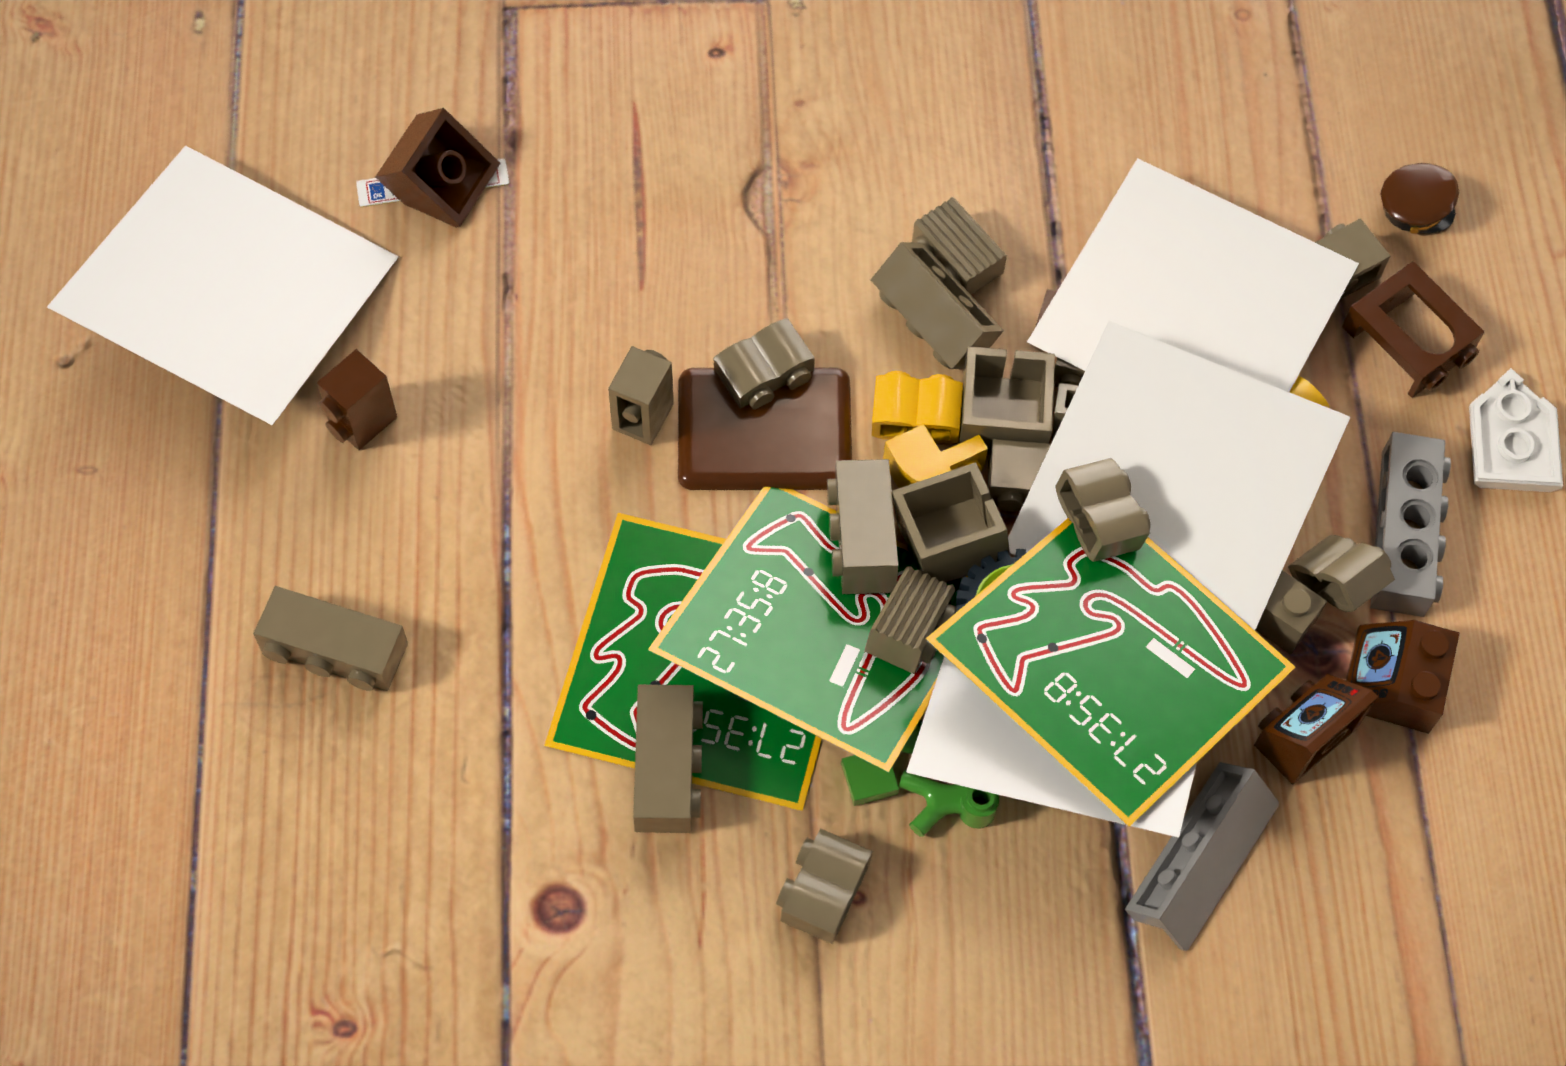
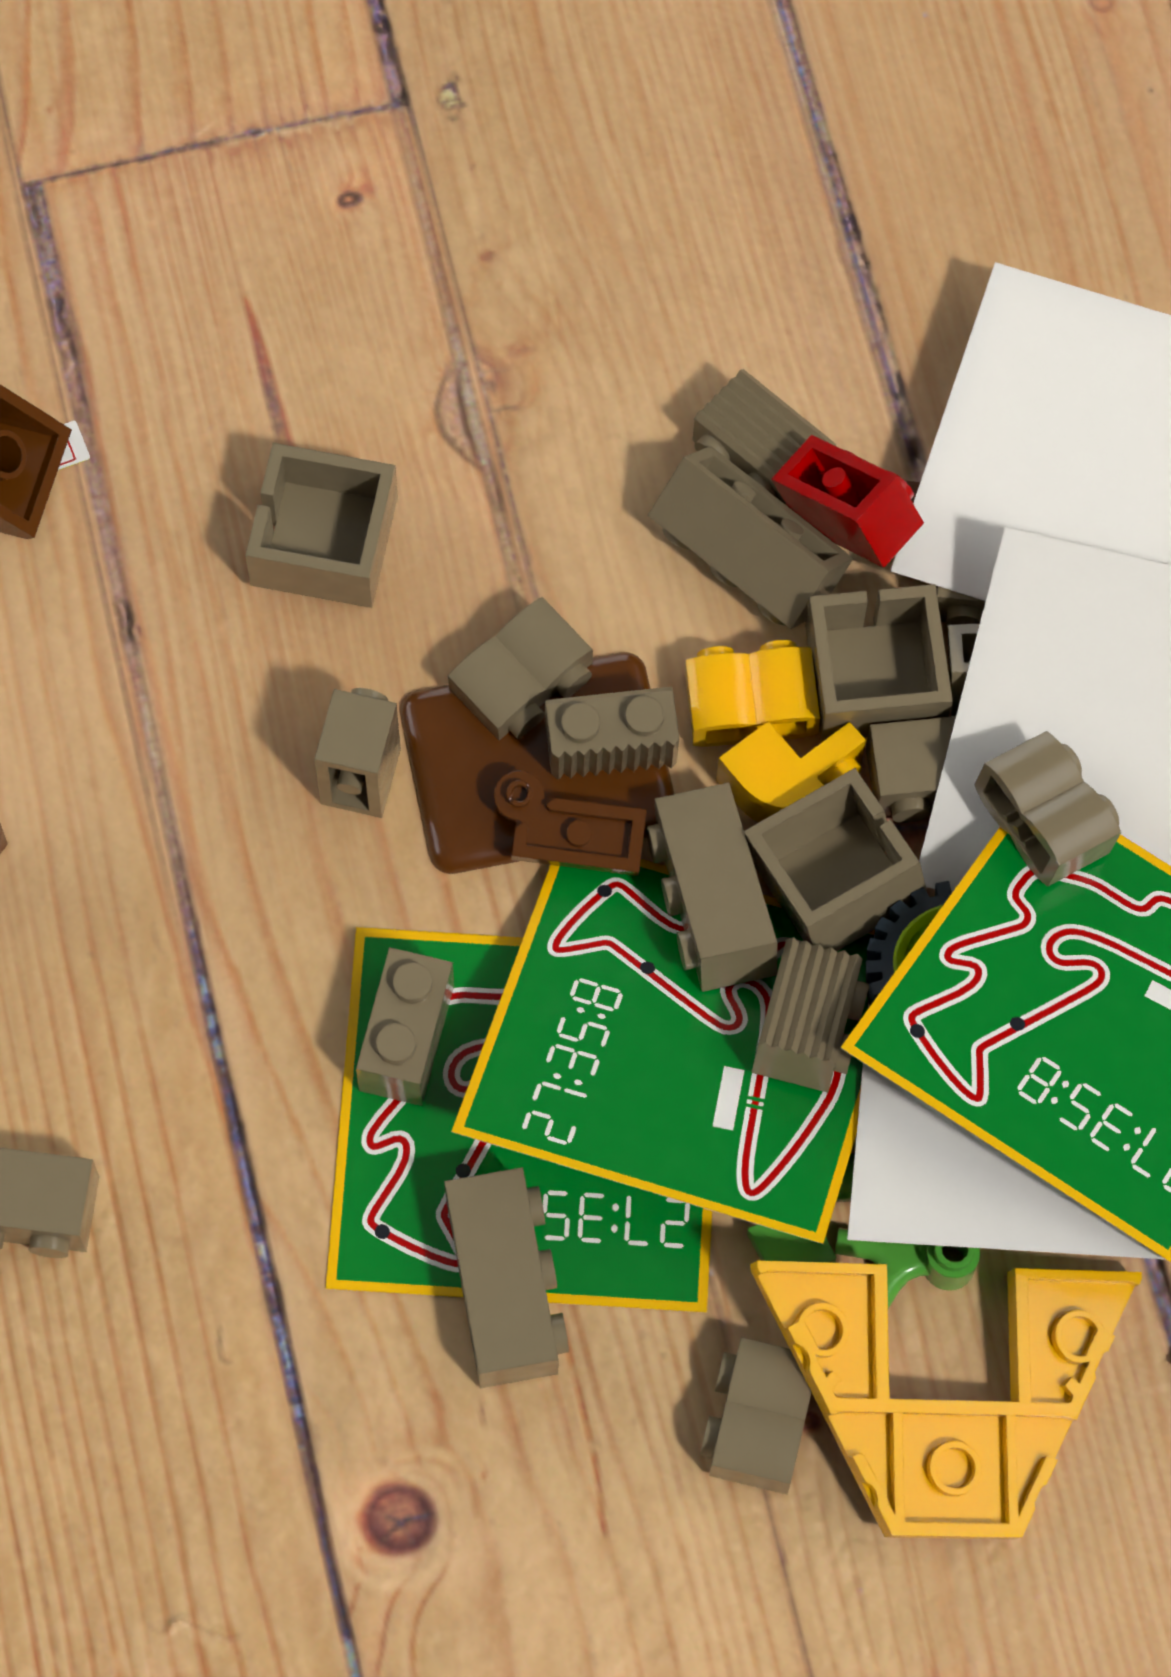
camera: 10 degrees left, 5 degrees up
(634, 580) = (405, 1026): none -> dark tan brick
(656, 247) = (328, 524): none -> dark tan piece
(774, 472) = (569, 830): none -> reddish brown hinge
(816, 413) = (612, 732): none -> dark tan brick
(946, 941) = (946, 1462): none -> yellow wing
(1007, 289) = (849, 500): none -> red brick

